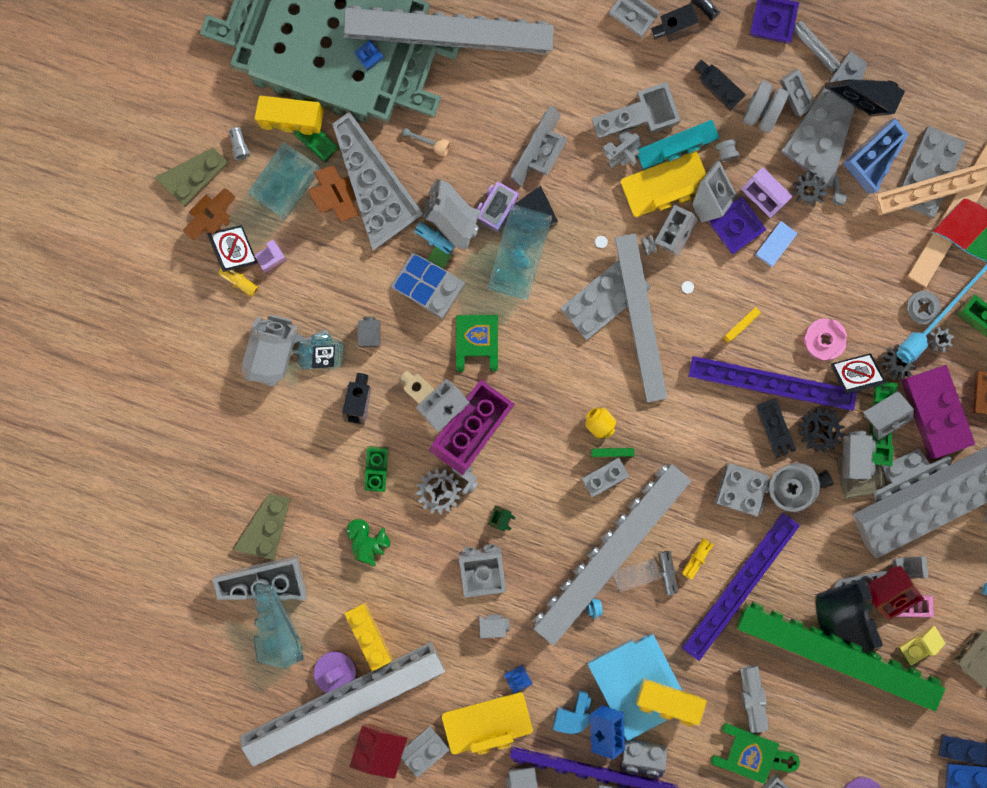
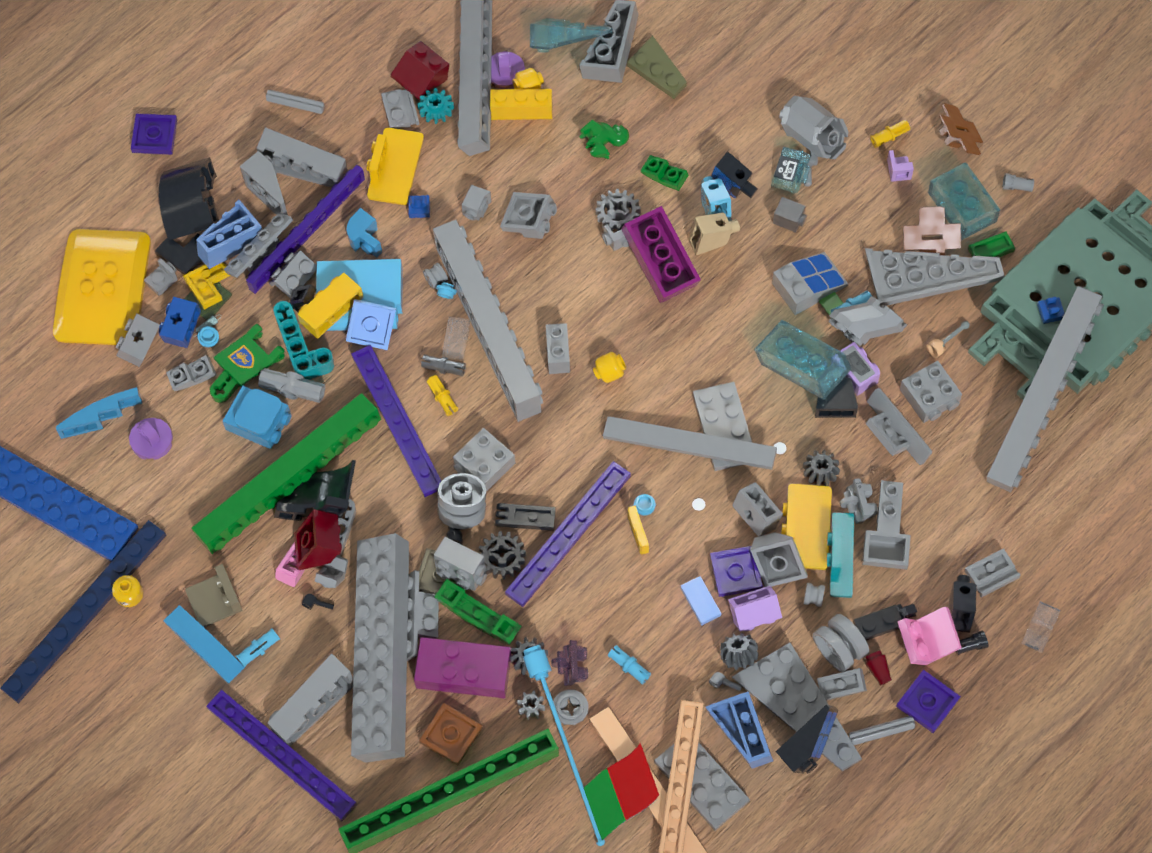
camera: 120 degrees right, 20 degrees down
(192, 175) = (1004, 137): olive wing -> none
(232, 248) = (921, 137): piece -> none
(289, 115) = (1024, 230): yellow brick -> none
(342, 642) = (528, 79): none -> yellow head
(394, 400) = (714, 193): none -> medium azure torso
(399, 715) = (435, 106): none -> teal gear
(442, 405) = (692, 228): light grey brick -> none
(476, 338) = (740, 302): green flag -> none
(489, 132) = (931, 392): none -> light grey brick
(500, 518) = (568, 250): dark green tile -> none
(584, 625) = (435, 275): none -> light grey wheel
(607, 732) = (333, 248): blue brick -> none
(612, 452) = (577, 365): green tile -> none
(615, 193) = (819, 461): none -> dark grey gear
(648, 245) = (760, 480): light grey bush -> none
(665, 656) = (371, 324): none -> light blue tile
(669, 734) = (302, 296): none -> black bracket
(707, 718) = (296, 340): none -> teal beam
(713, 331) = (645, 504): none -> medium azure plate
(721, 39) = (929, 636): none -> bright pink bracket
(764, 70) = (878, 667): none -> dark red cone
(800, 712) = (257, 417): none -> dark azure brick
(837, 339) = (575, 594): bright pink plate -> none
(858, 373) = (537, 611): piece -> none
(862, 276) = (629, 664): none -> medium azure pin
(889, 415) = (483, 617): light grey panel -> none
(890, 326) = (567, 663): none -> clear purple hips
(924, 644) = (254, 554): light yellow slope -> none
(939, 574) = (309, 601): none -> black hand

